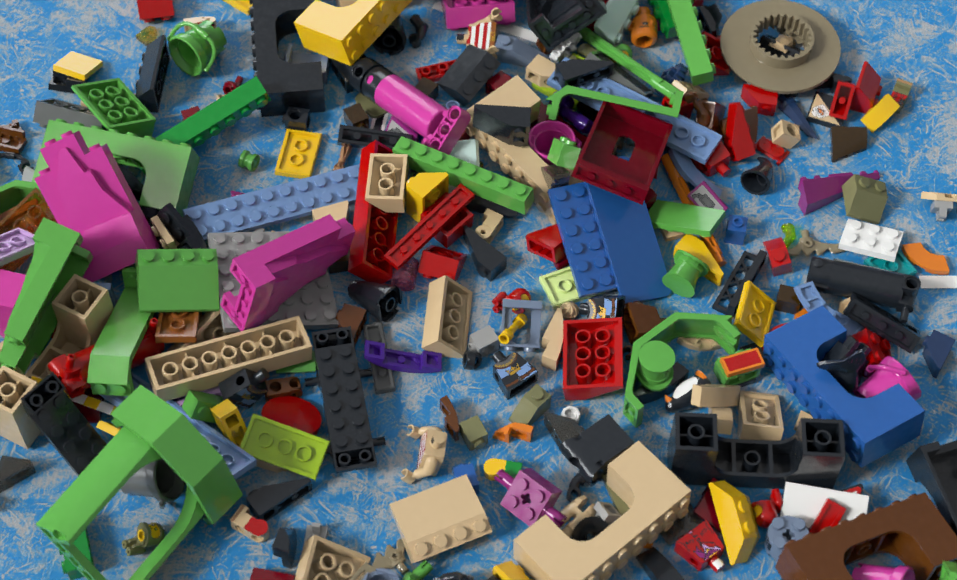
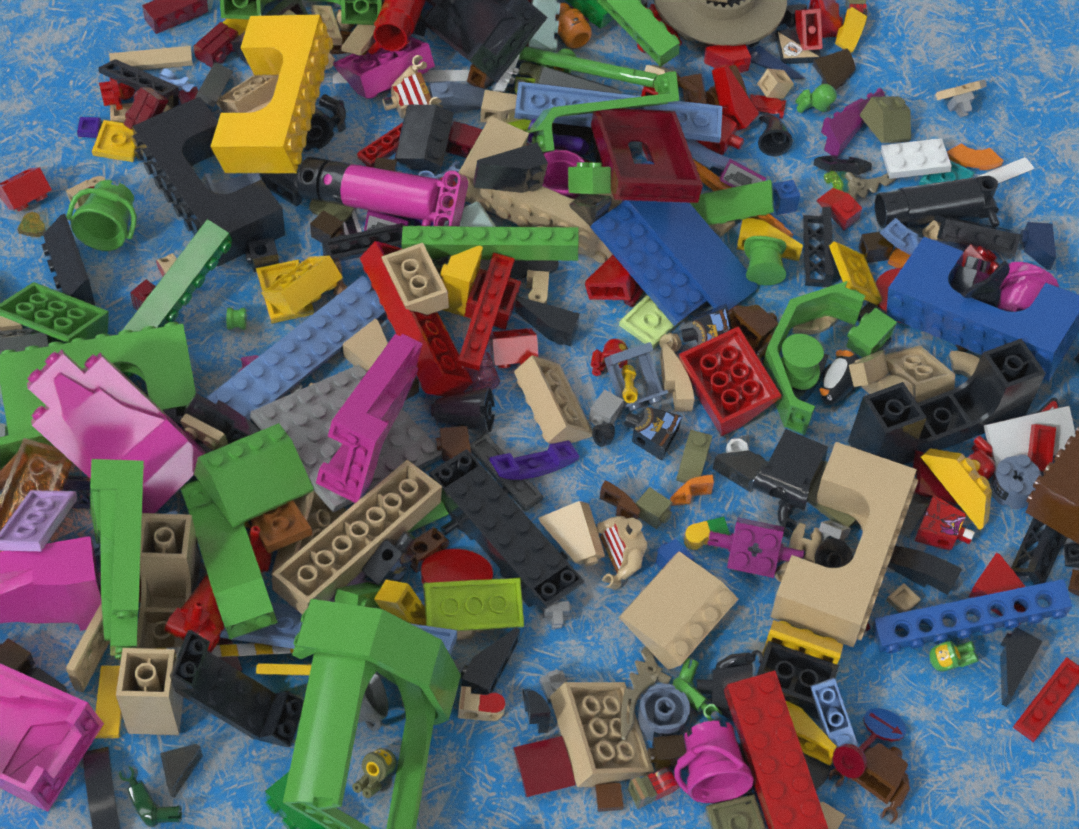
camera: 30 degrees left, 0 degrees up
(230, 85) = (166, 246): dark red plate -> none
(310, 154) = (303, 284): none -> yellow slope
(349, 481) = (556, 613): none -> light grey tile
(399, 426) = (575, 532): none -> tan slope
(580, 72) = (547, 91): black slope -> none
(674, 73) = (636, 60): dark blue gear -> none
(742, 362) = (878, 324): tile -> none
(796, 217) = (852, 165): none -> black tile
(817, 161) = (820, 98): none -> bright green piece

